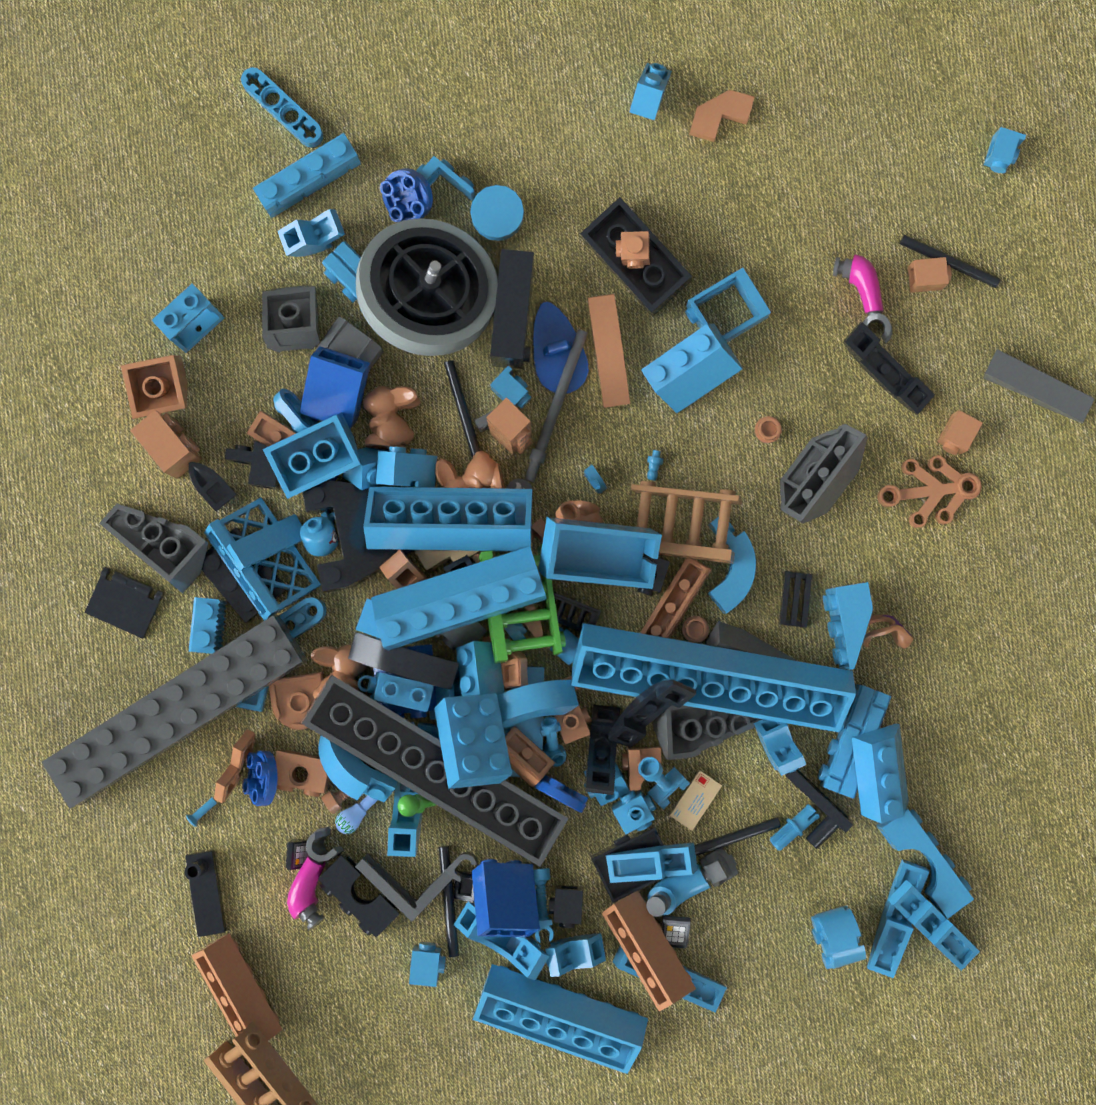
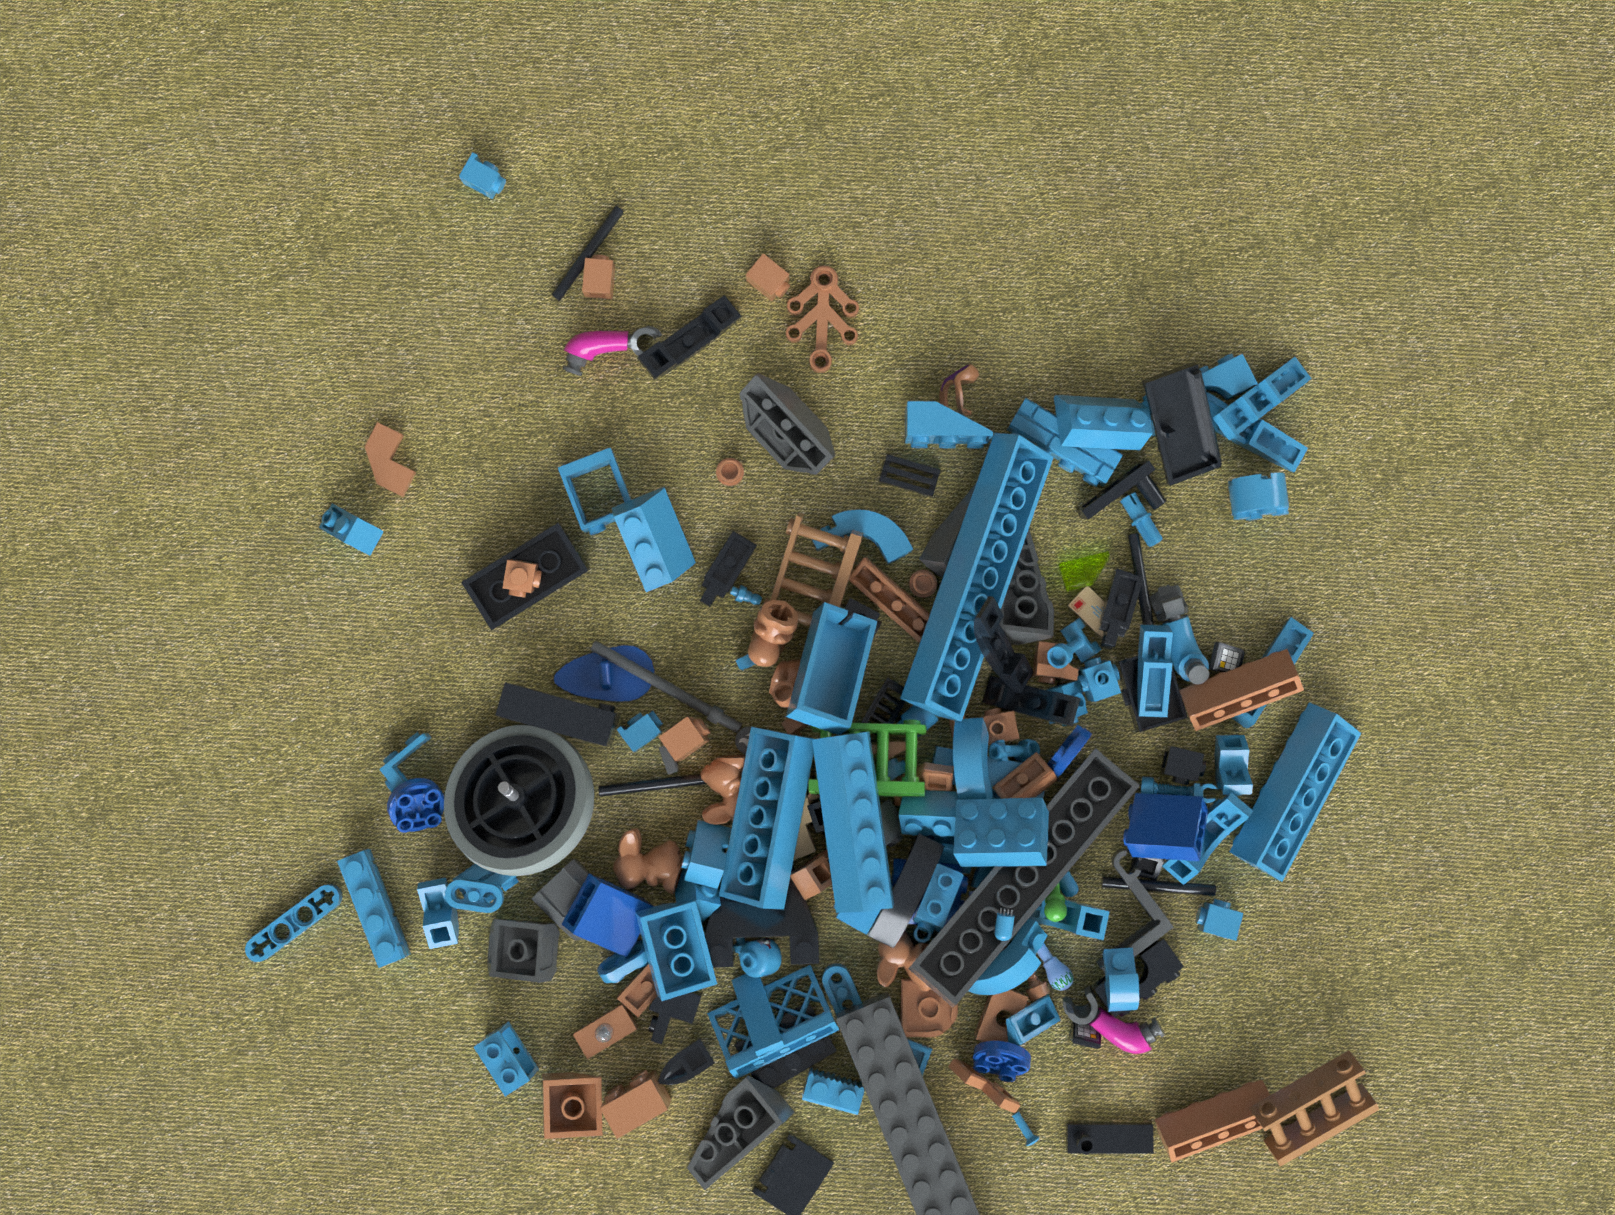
camera: 80 degrees left, 0 degrees up
(229, 406) = (605, 1030): none -> nougat piece
(301, 800) = (1031, 1020): none -> dark azure slope
(332, 263) = (474, 896): none -> dark azure plate
(353, 879) = (1121, 979): none -> dark azure brick
(385, 757) = (1004, 925): none -> dark azure piece
(434, 815) = (1068, 885): none -> dark azure piece
(497, 212) = (452, 713): dark azure piece -> none
(608, 350) = (618, 621): nougat slope -> none
(627, 494) = (772, 630): none -> nougat animal
(677, 442) = (727, 567): none -> black hinge
(707, 819) = (1119, 606): none -> black hinge
(734, 779) = (1082, 571): none -> clear neon green tile
(779, 746) = (1057, 519): dark azure brick -> none
(895, 851) = (1182, 423): none -> black container
(1040, 387) = (735, 188): dark grey slope -> none

